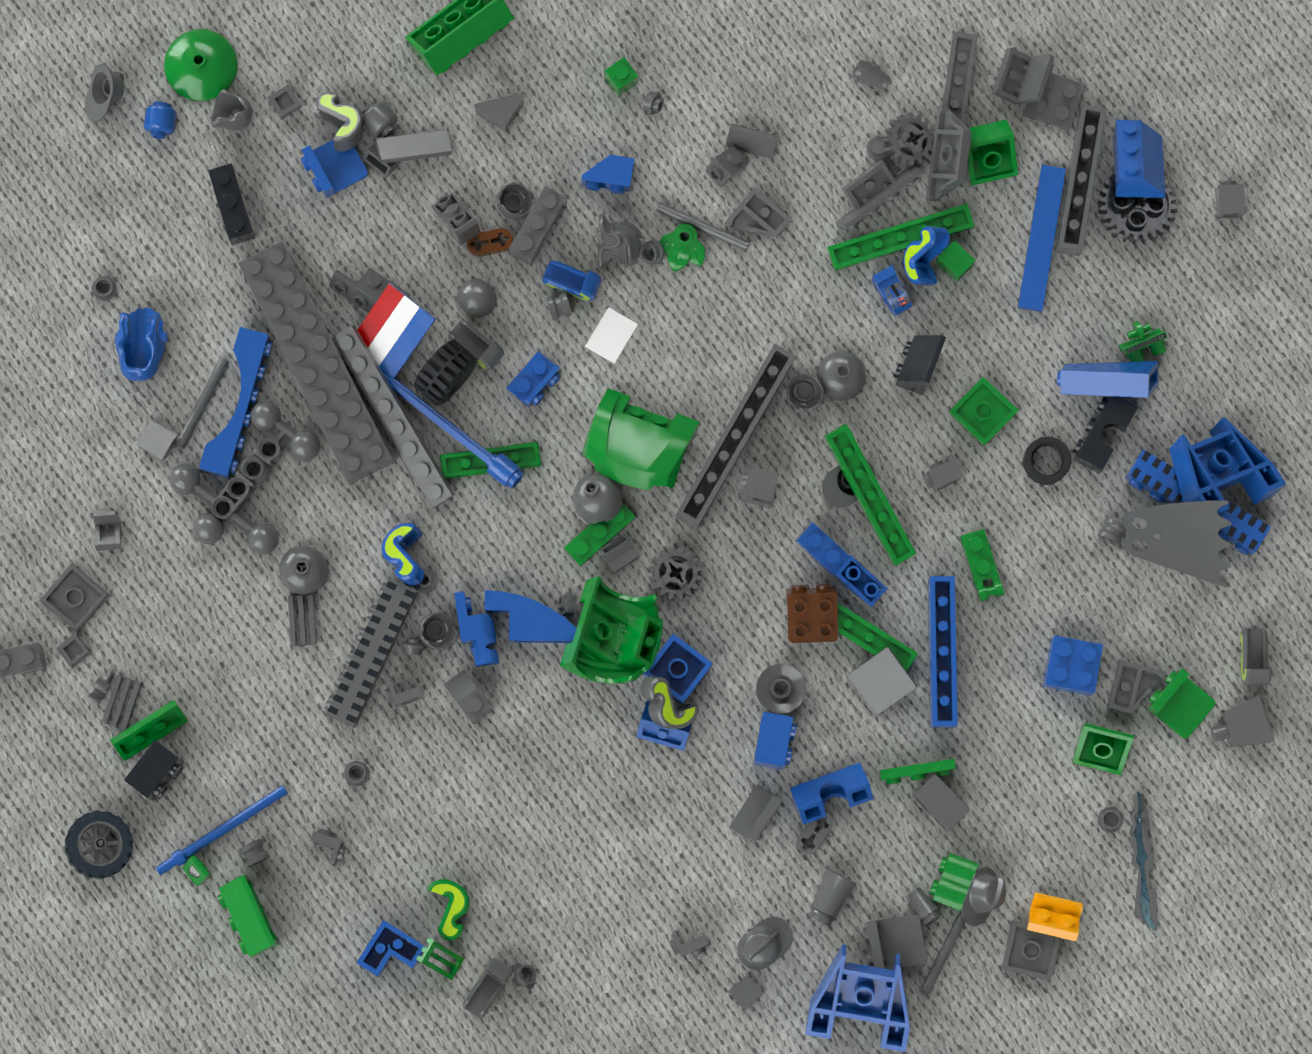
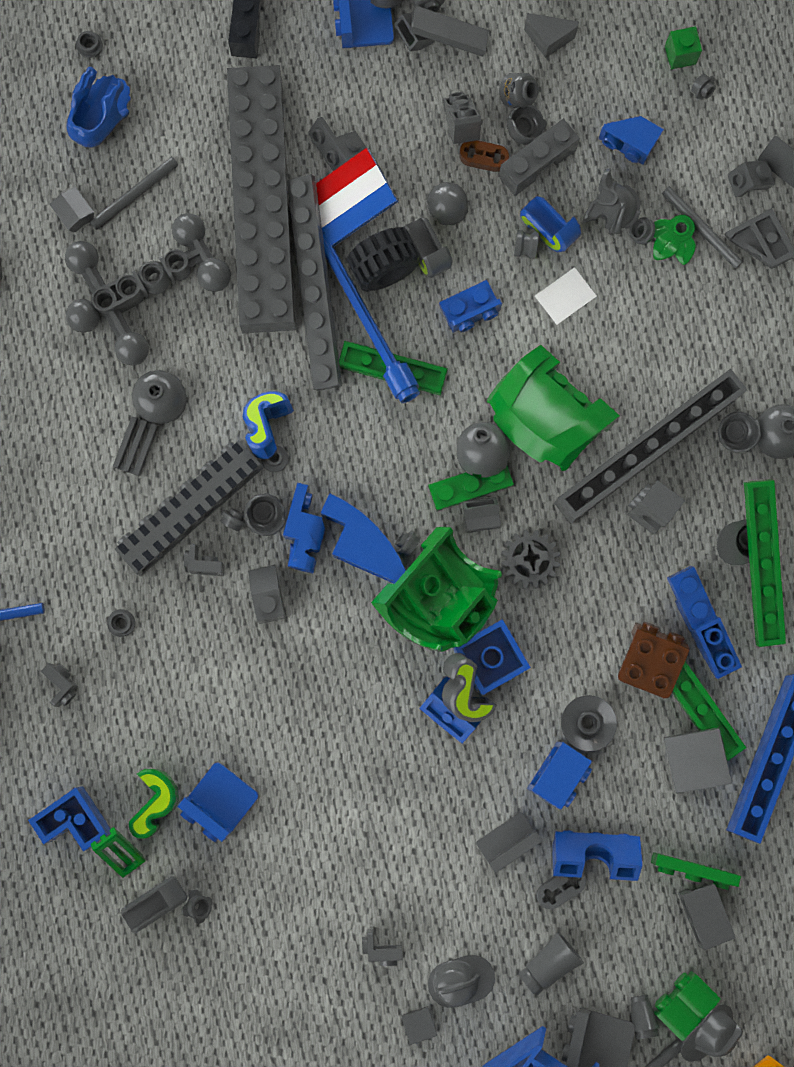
camera: 25 degrees right, 0 degrees up
(221, 452) = (131, 246): blue arch -> none
(495, 174) = (518, 90): none -> dark grey head
(504, 883) = (218, 802): none -> blue bracket

